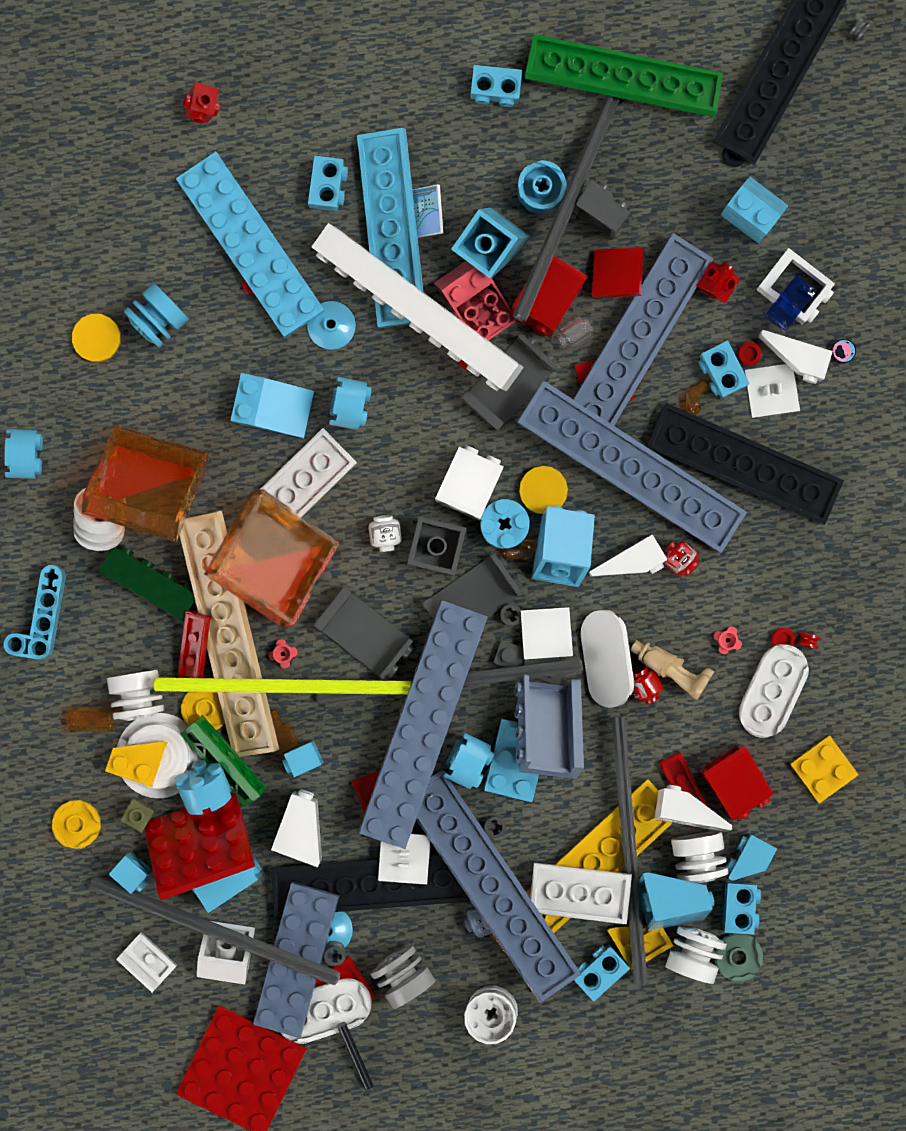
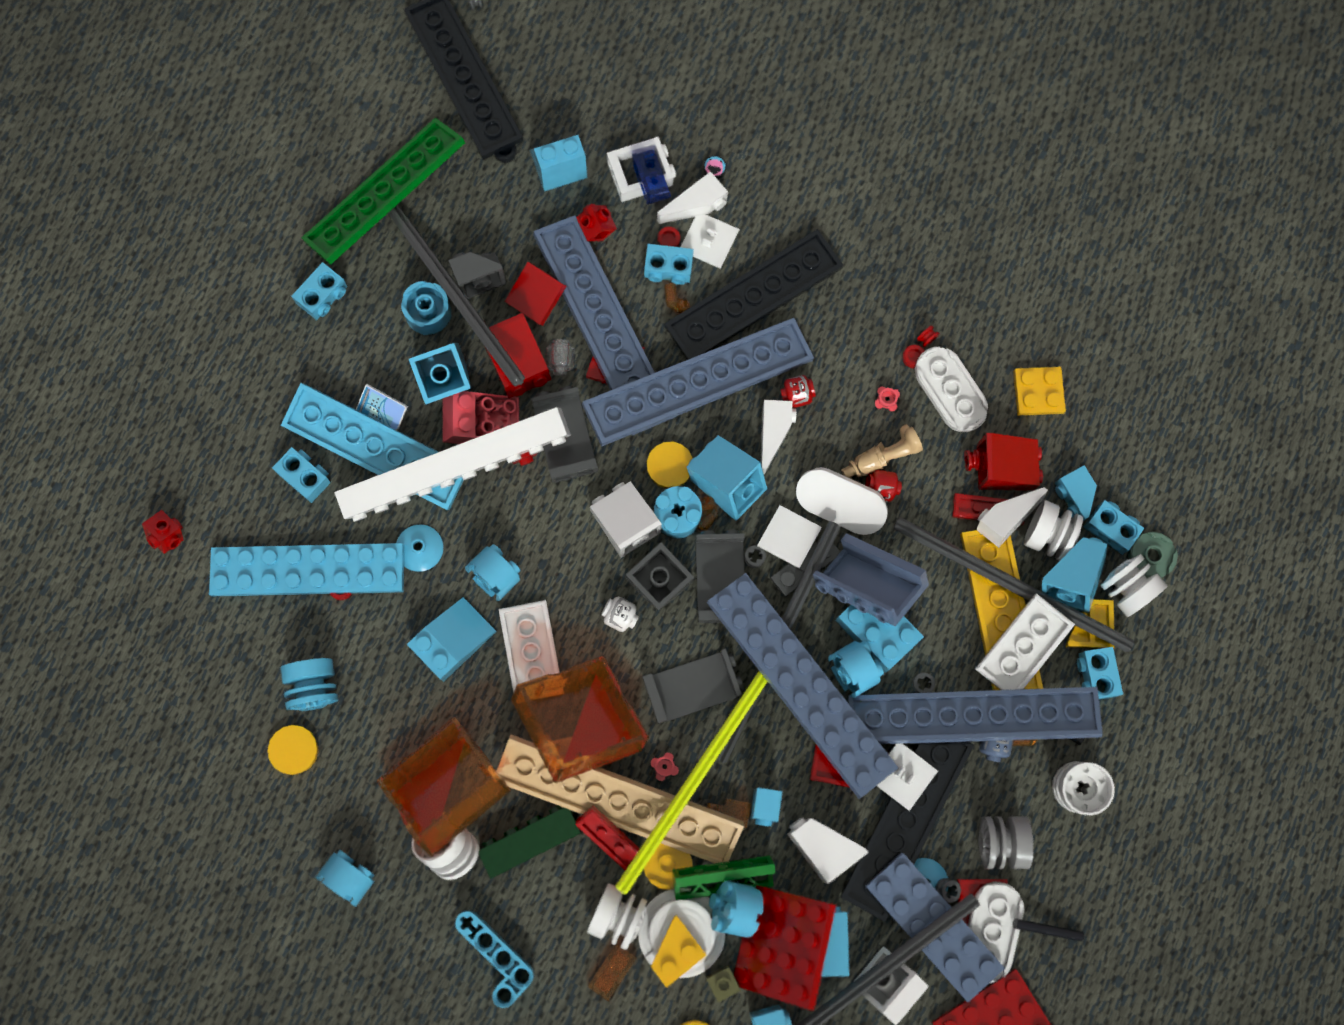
camera: 55 degrees left, 10 degrees down
(719, 748) = (972, 460): none -> red bush

